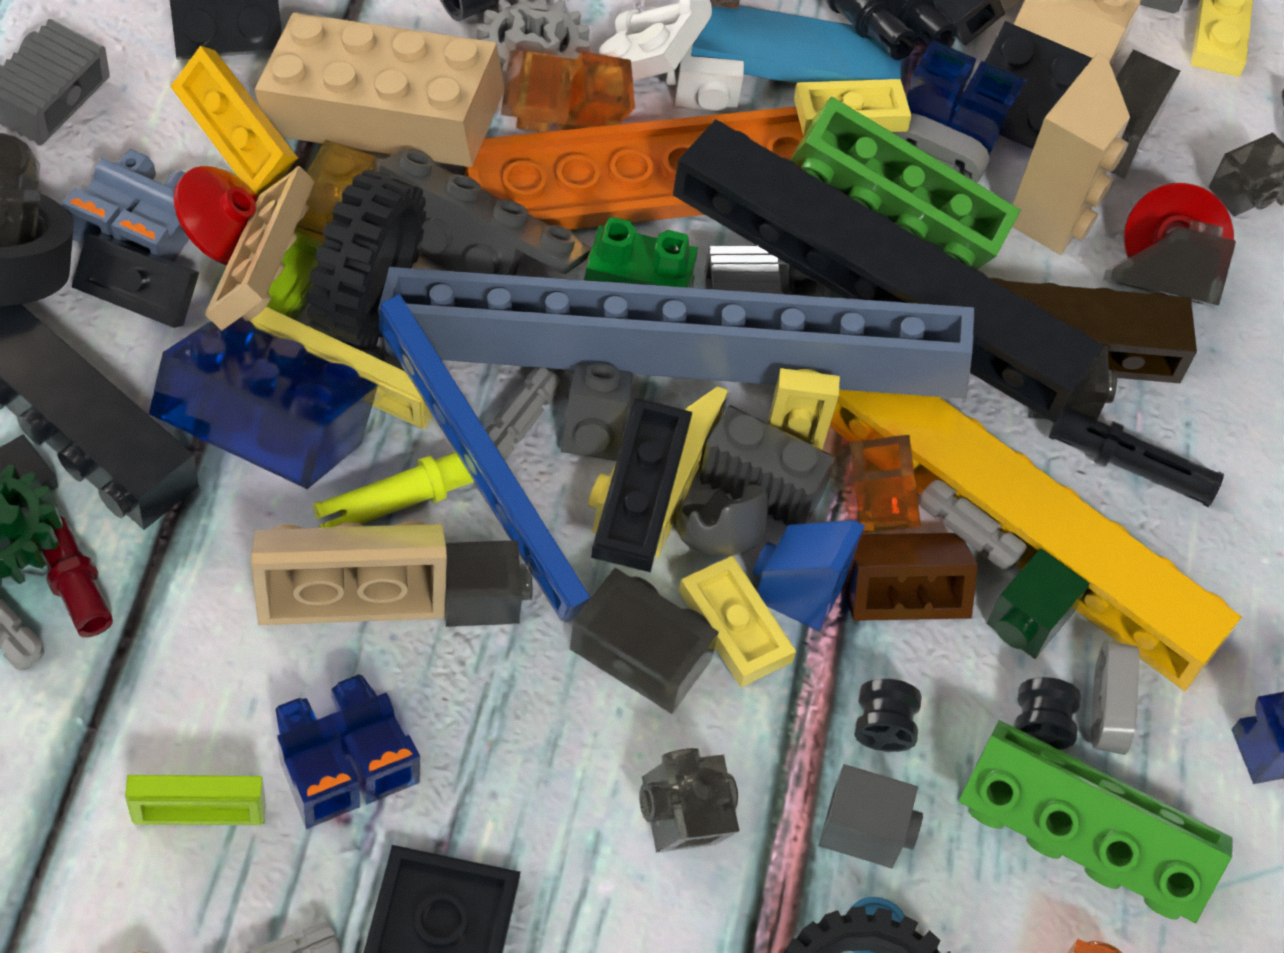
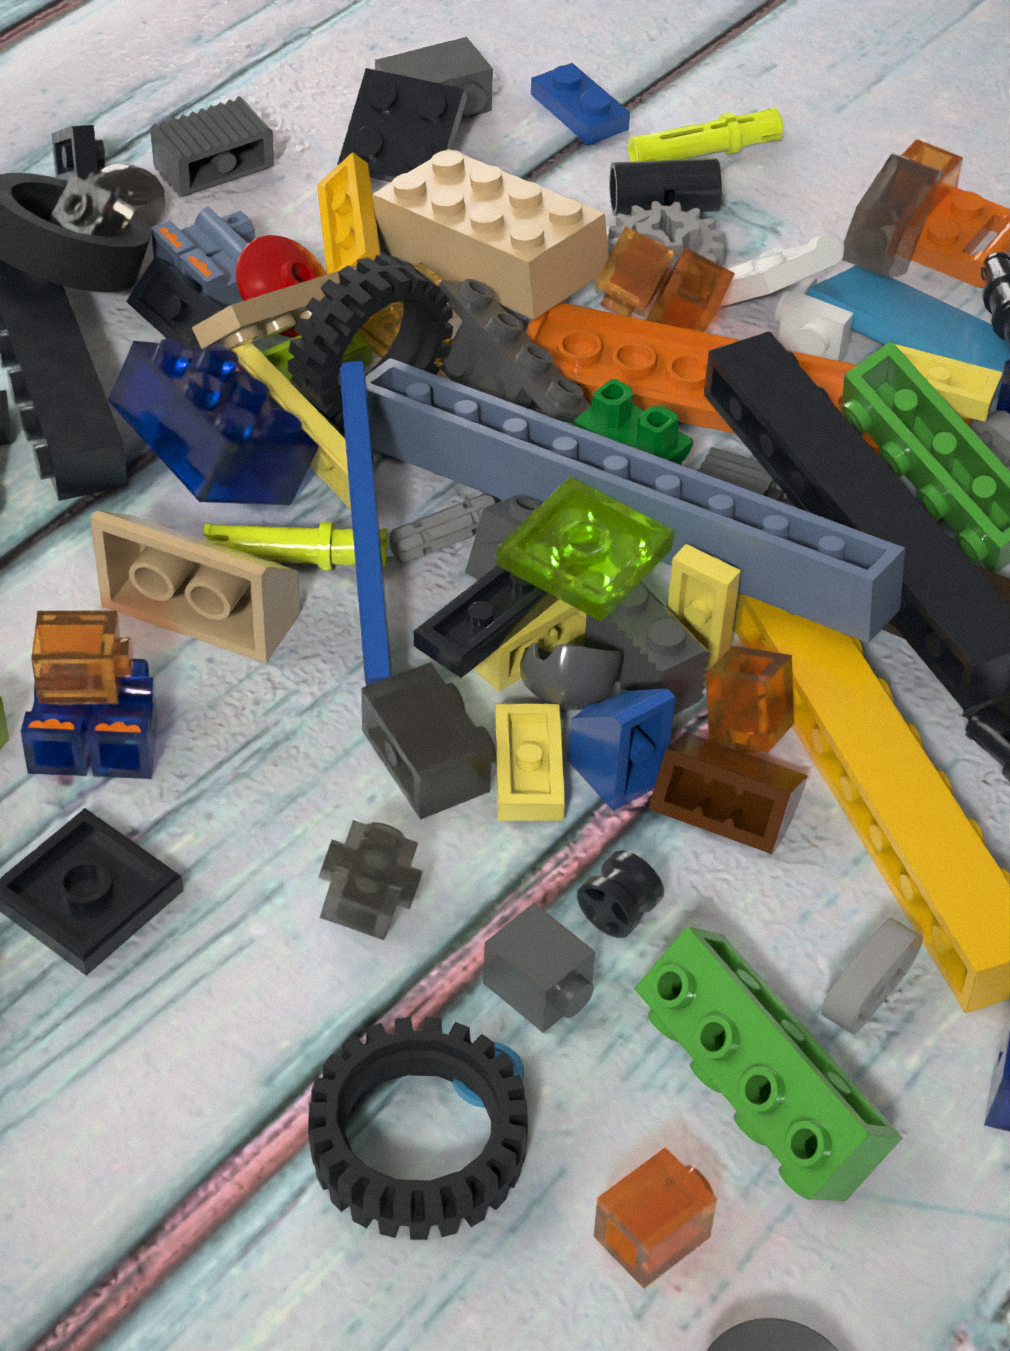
camera: 35 degrees right, 10 degrees down
(324, 708) = (79, 657): none -> clear orange brick
(485, 583) = (310, 639): clear smoke brick -> none
(696, 405) = (585, 548): none -> clear neon green plate
(972, 524) = (819, 768): light grey axle -> none
(1037, 603) = (844, 863): dark green brick -> none
(1048, 711) = (790, 957): black wheel -> none

